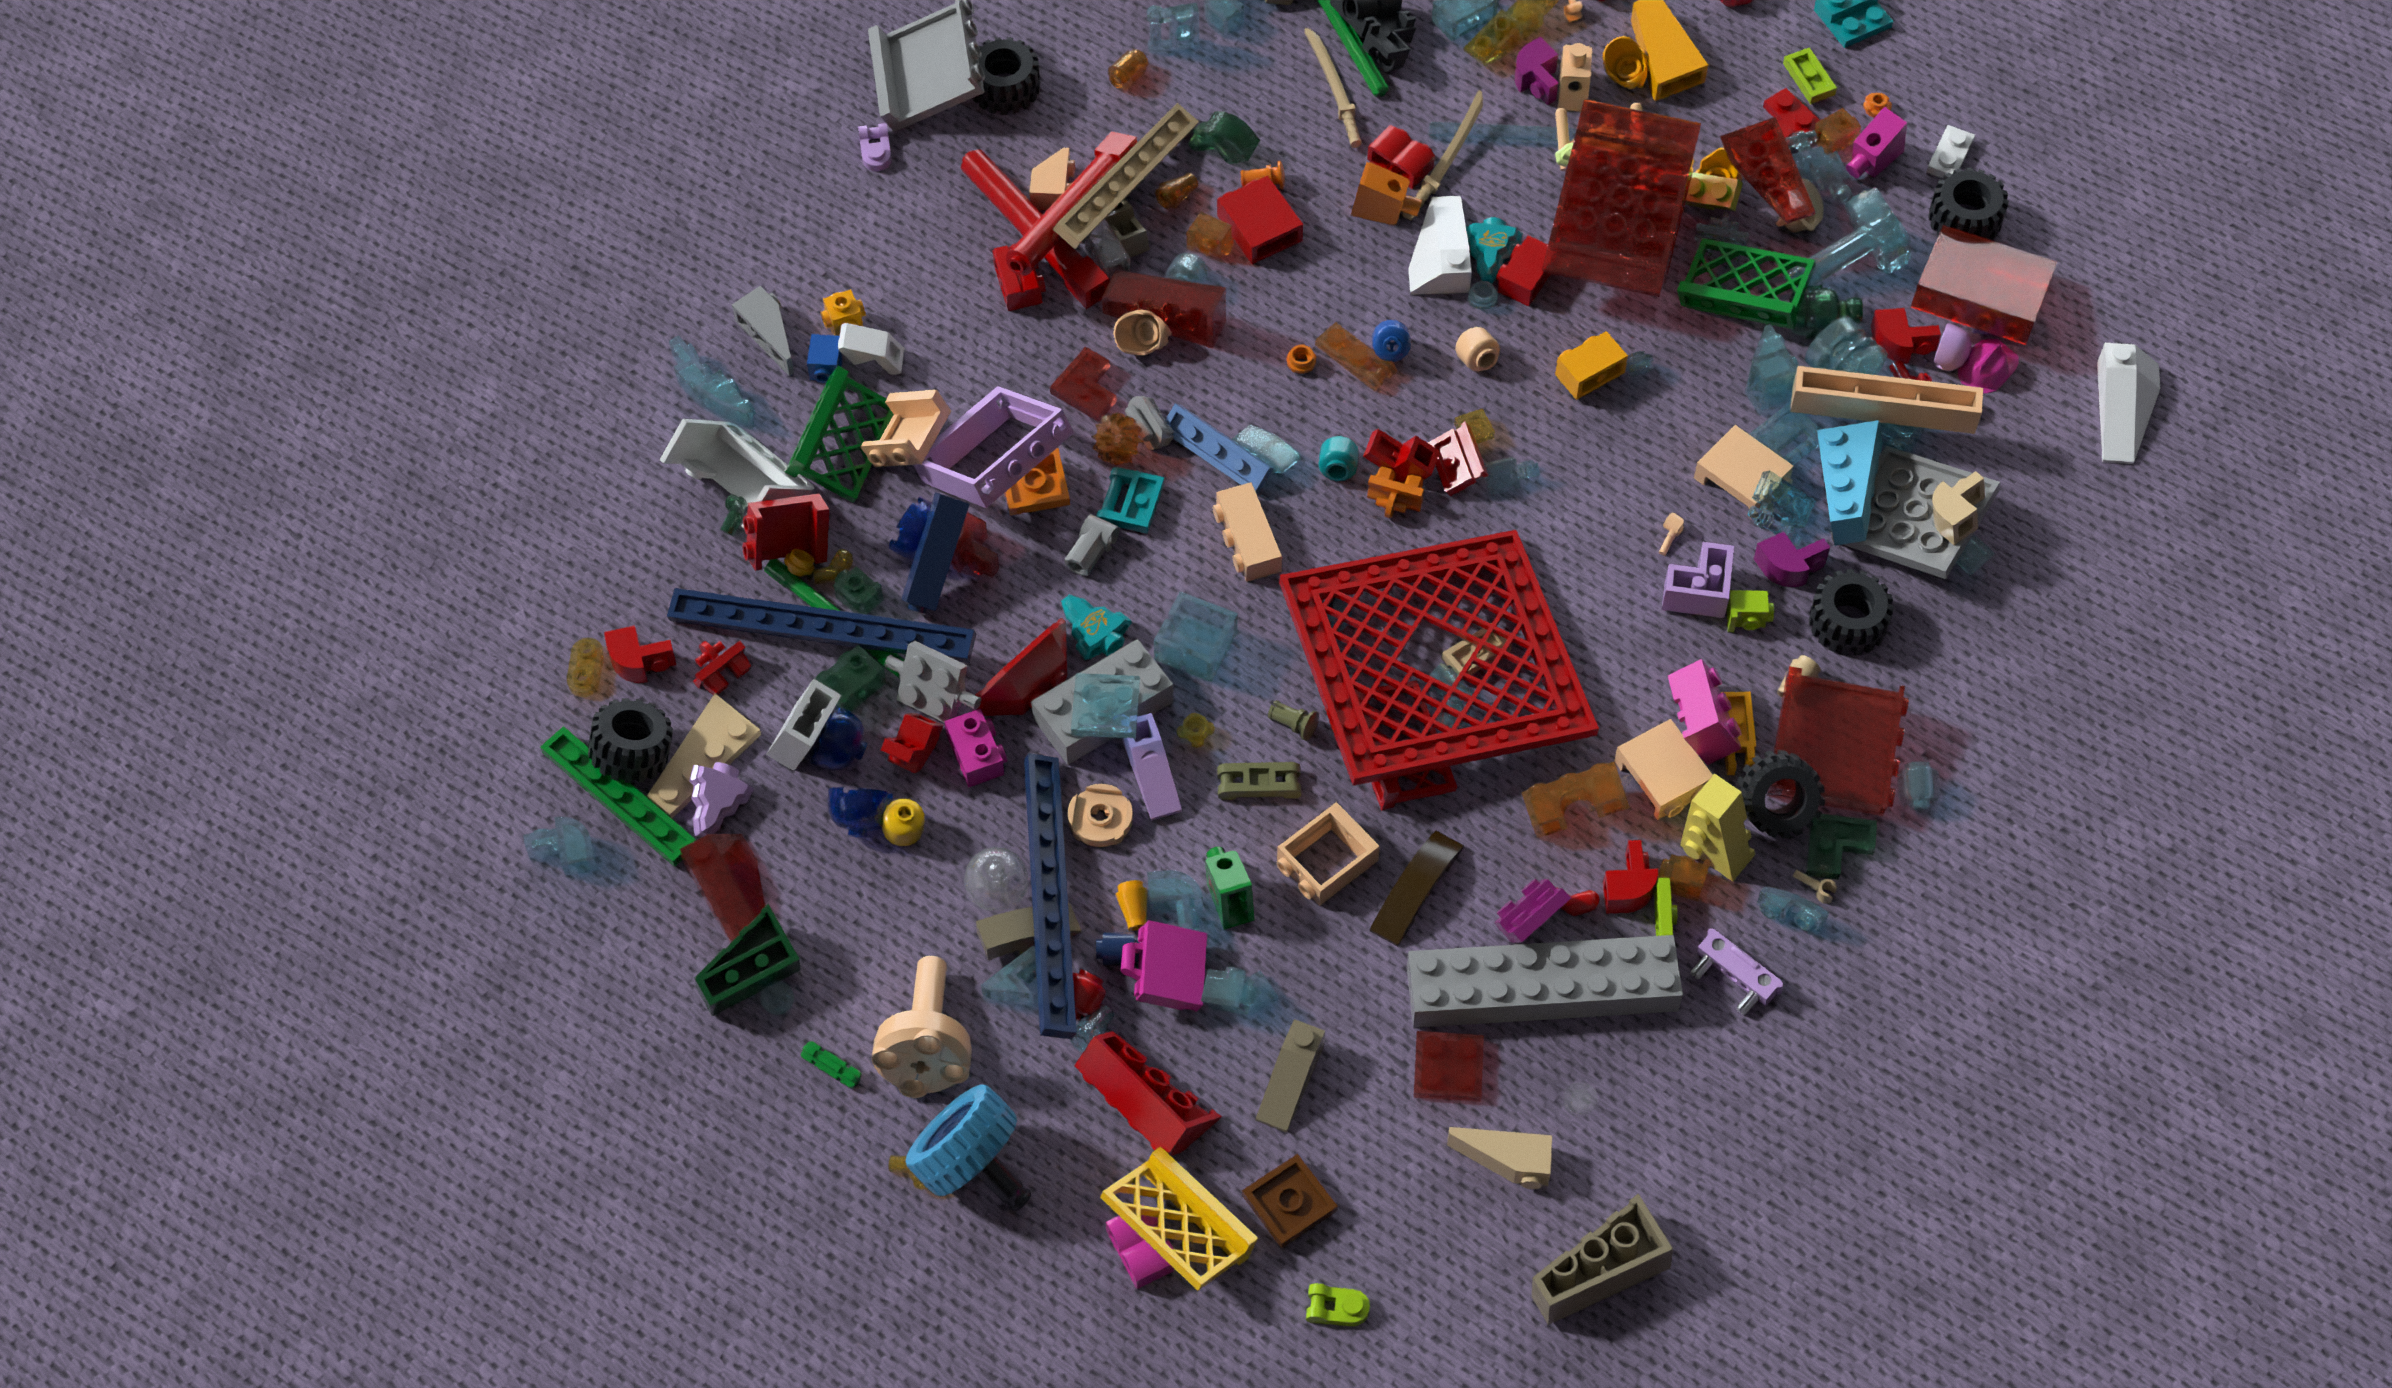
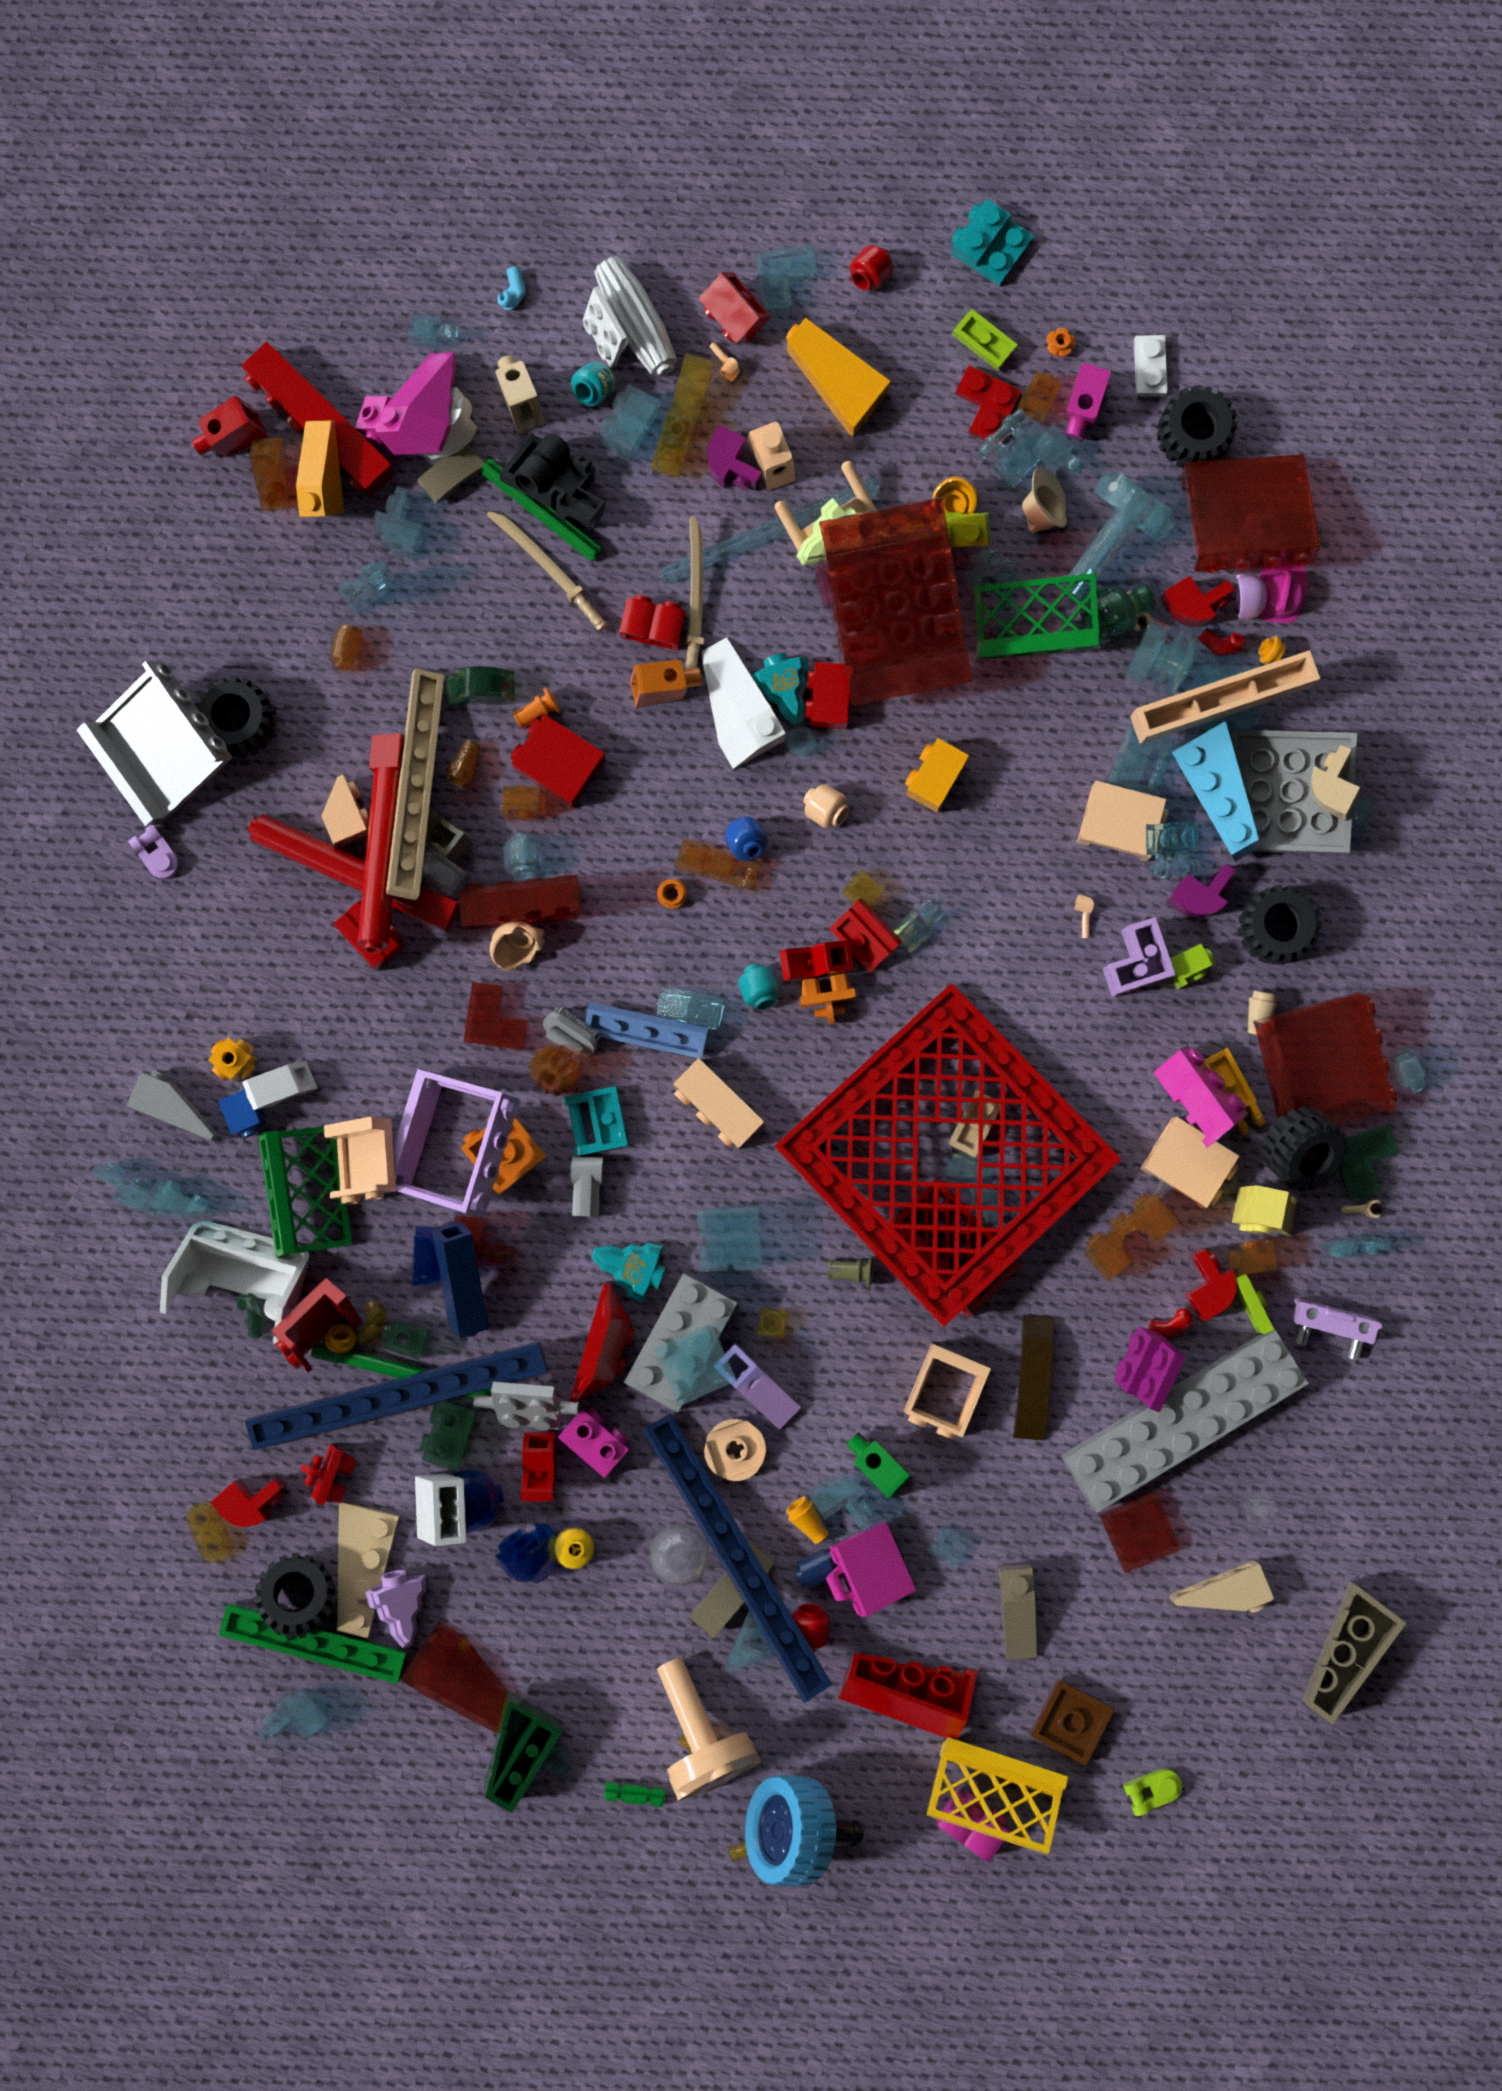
camera: 25 degrees left, 25 degrees up
(1091, 1026) = (833, 1654): clear light blue cone -> none
(1229, 990) = (931, 1566): clear light blue brick -> none
(1259, 780) = (852, 1346): olive plate -> none
(1625, 62) = (811, 413): light orange hair -> none
(1639, 363) = (977, 747): clear light blue plate -> none
(1768, 166) = (1005, 486): clear red wedge -> none
(1771, 373) = (1101, 706): clear light blue slope -> none
(2126, 399) = (1418, 569): white wedge -> none

